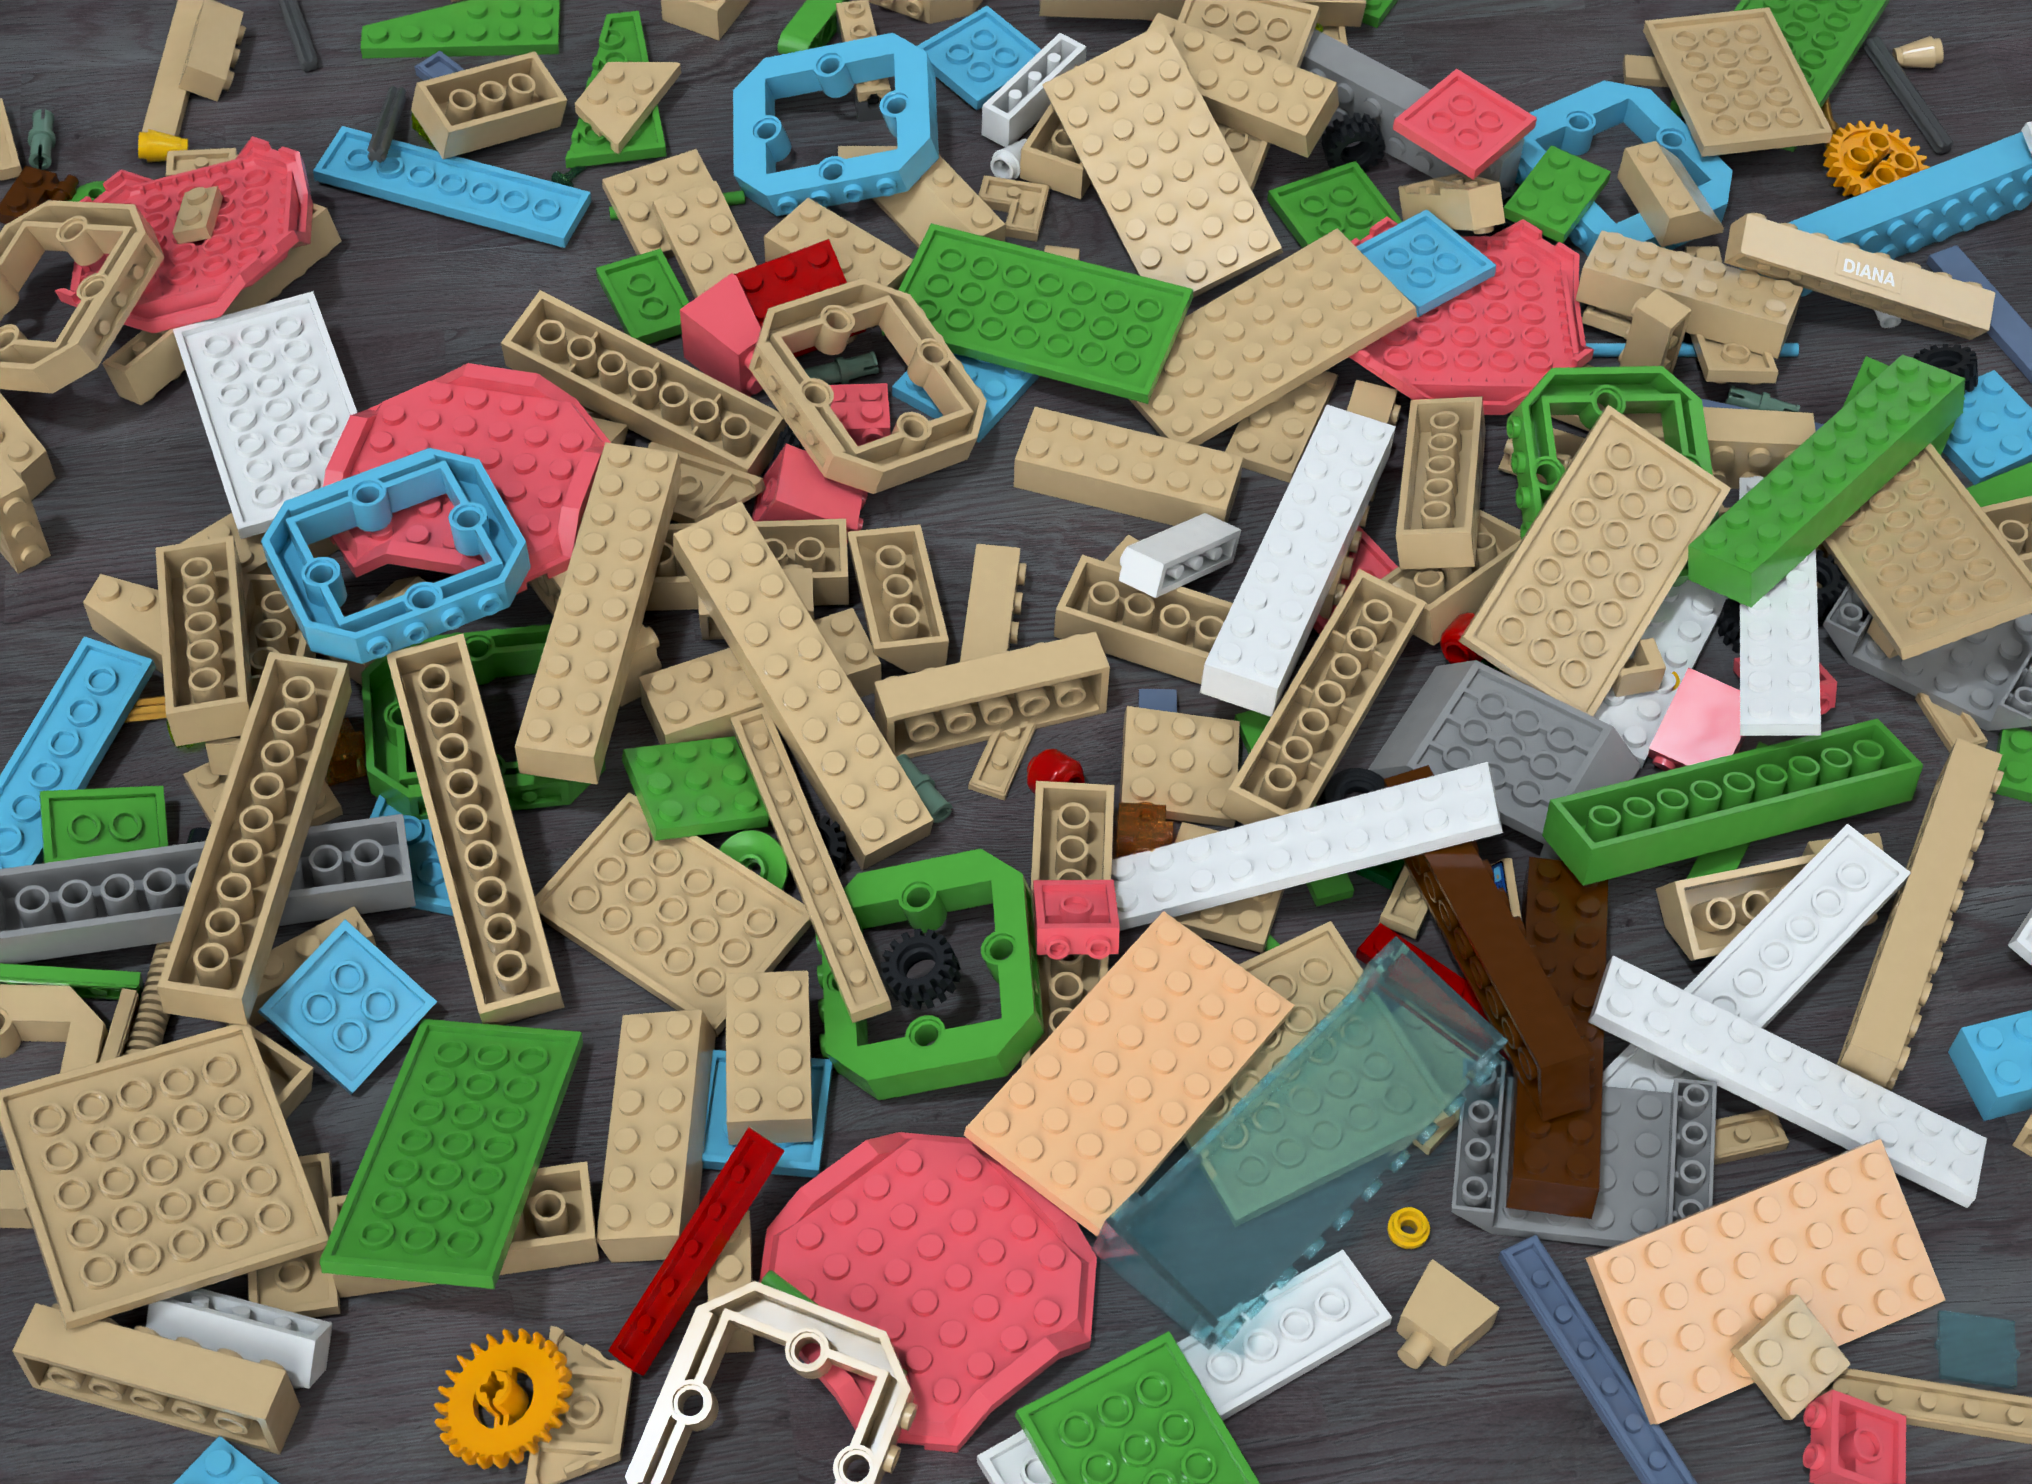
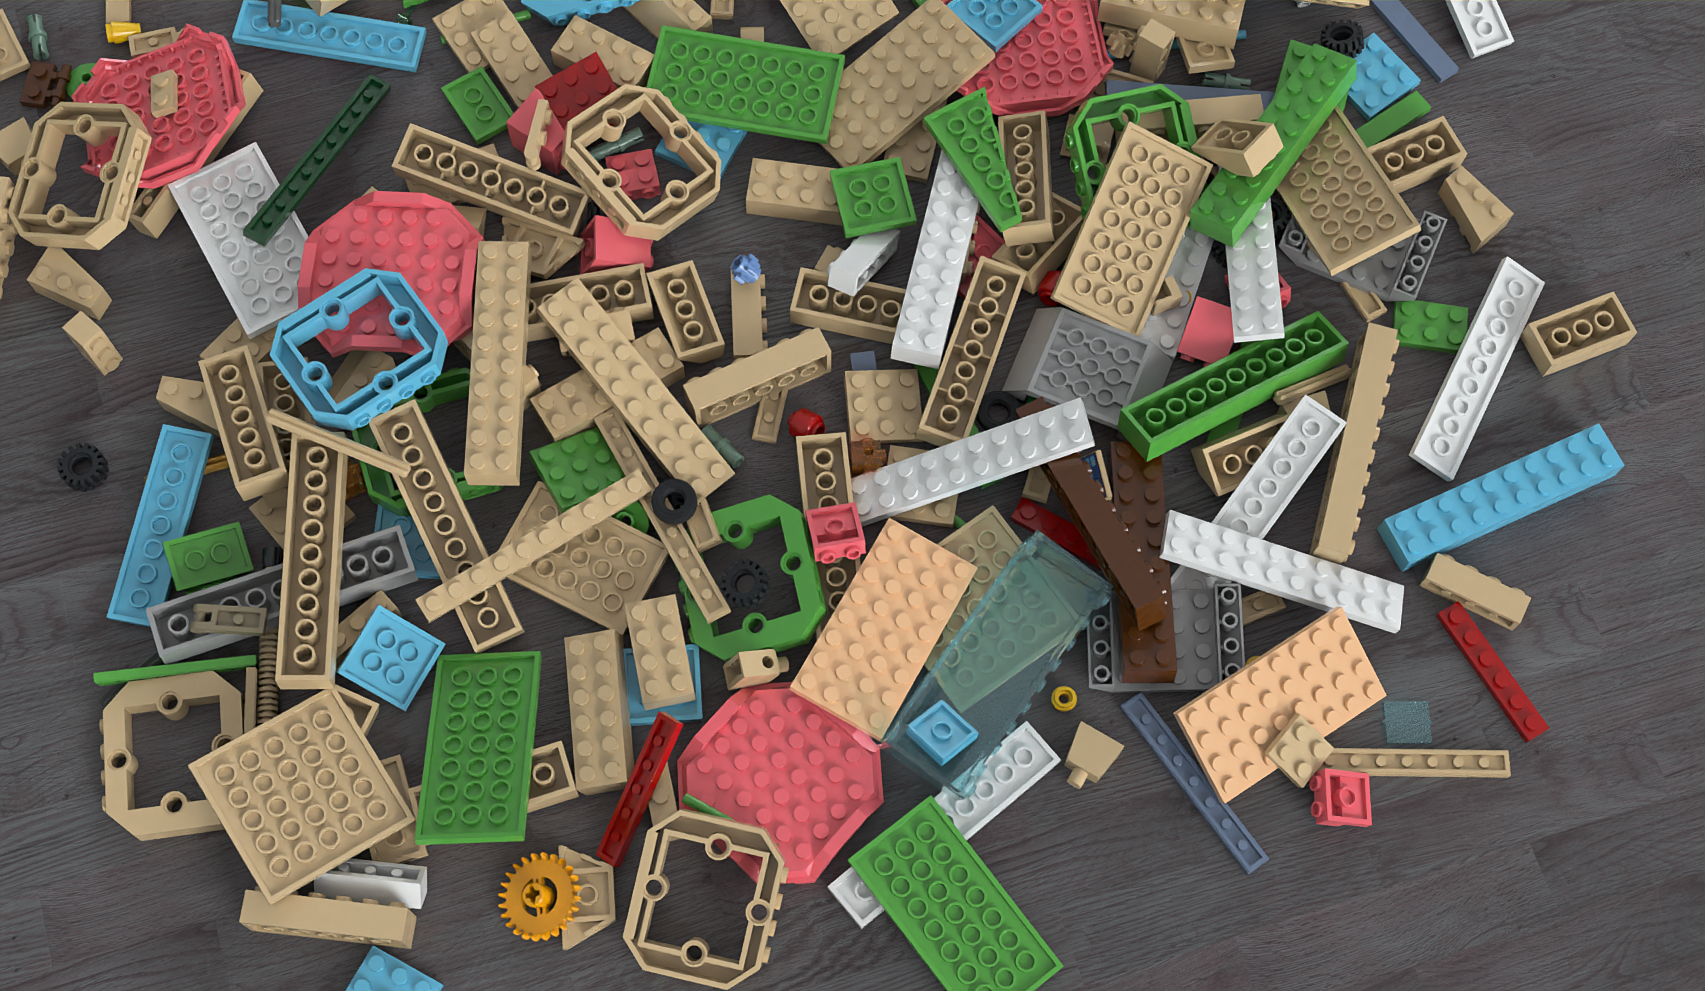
camera: 10 degrees left, 15 degrees up
(110, 902) = (229, 619): none -> dark tan plate
(335, 674) = (338, 443): none -> tan axle
(392, 326) = (316, 160): none -> dark green plate
(599, 871) = (533, 546): none -> tan plate
(722, 325) = (538, 134): none -> tan plate
(833, 860) = (669, 487): none -> black tyre
(868, 882) = (703, 527): none -> tan tile
(913, 1100) = (754, 668): none -> tan torso
(998, 544) = (746, 269): none -> medium blue gear
(1200, 1239) = (941, 732): none -> medium azure tile
(1206, 474) = (872, 197): none -> bright green plate
(1371, 425) = (975, 150): none -> bright green wing
(1607, 331) = (1120, 43): none -> tan gear
(1777, 462) = (1239, 145): none -> tan slope
(1864, 822) = (1312, 384): none -> tan axle

